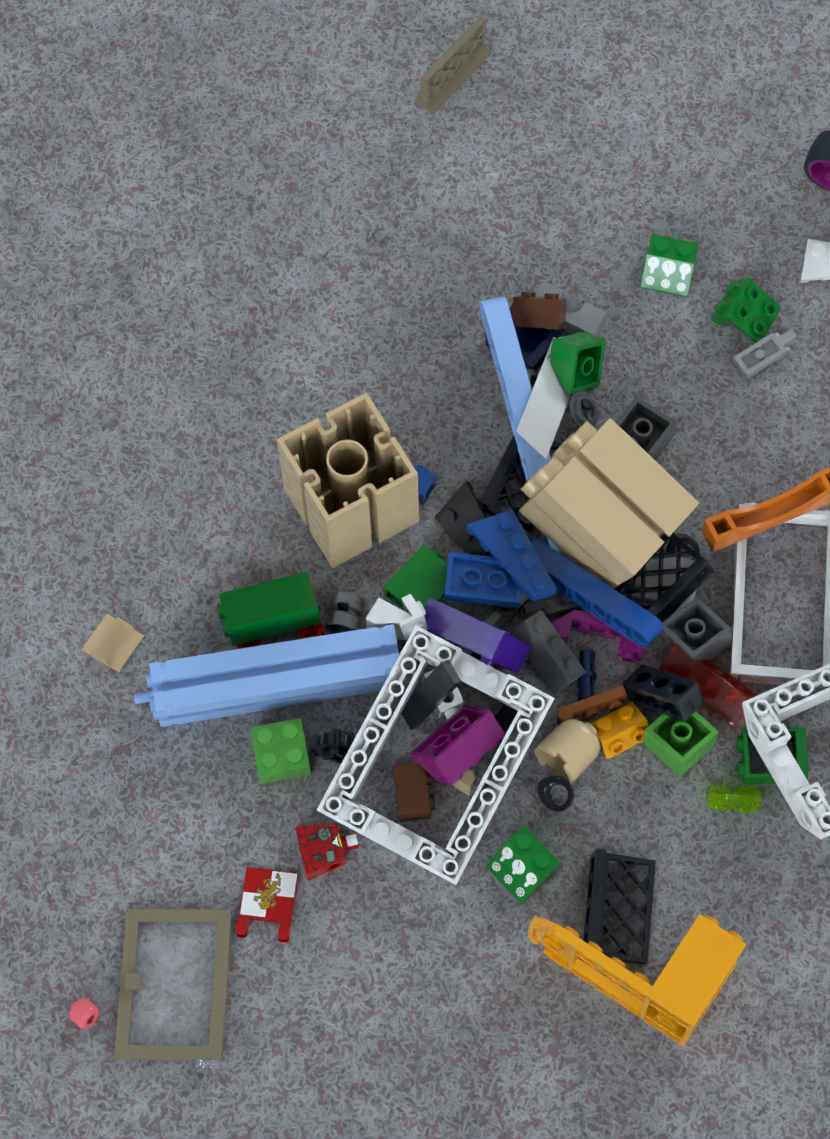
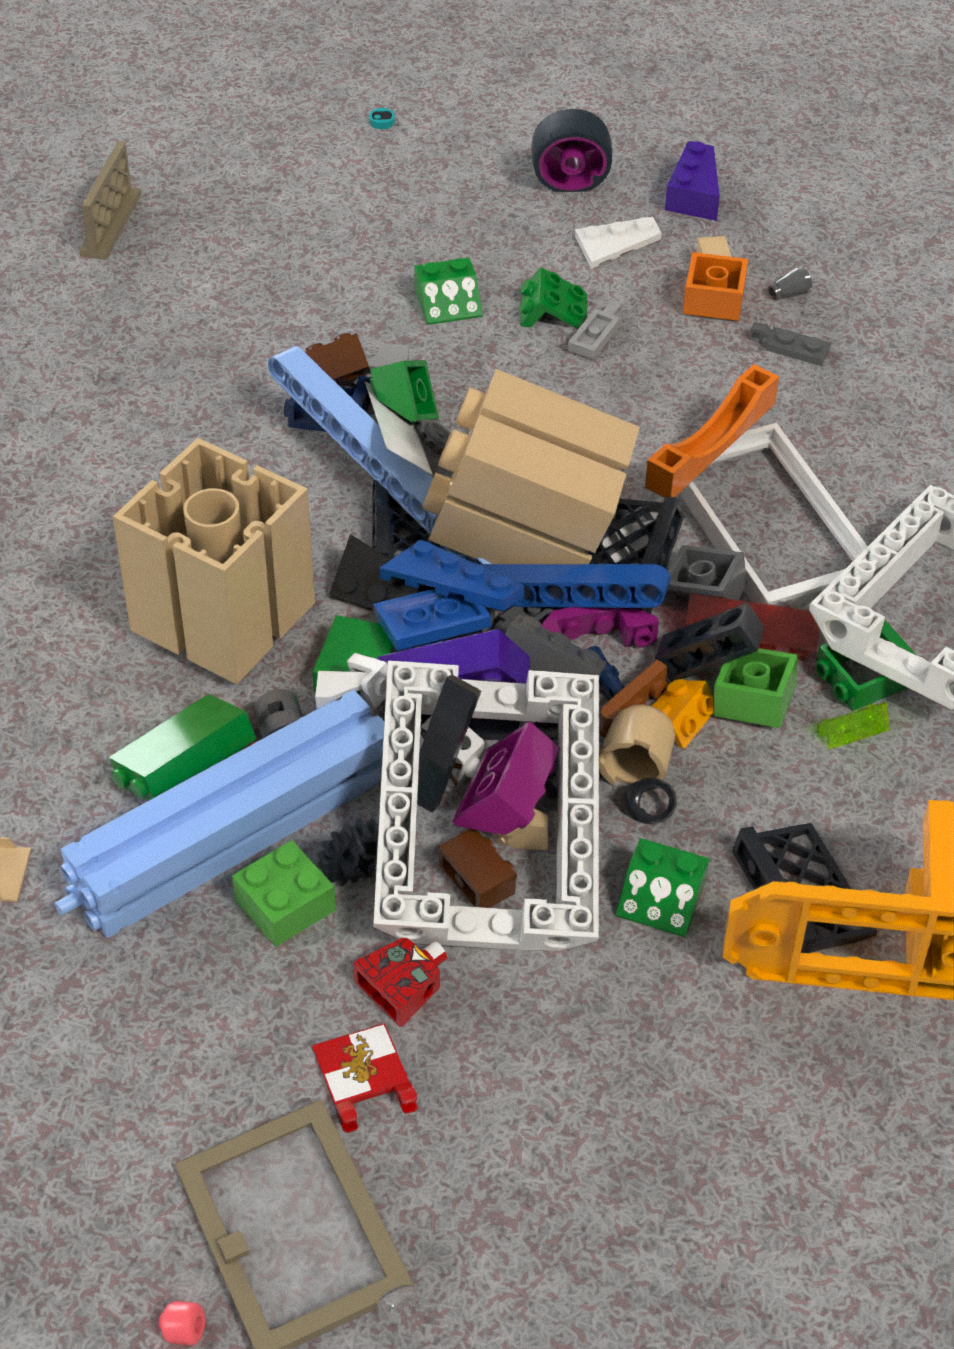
camera: 30 degrees left, 20 degrees down
(722, 46) = (381, 118): none -> teal tile

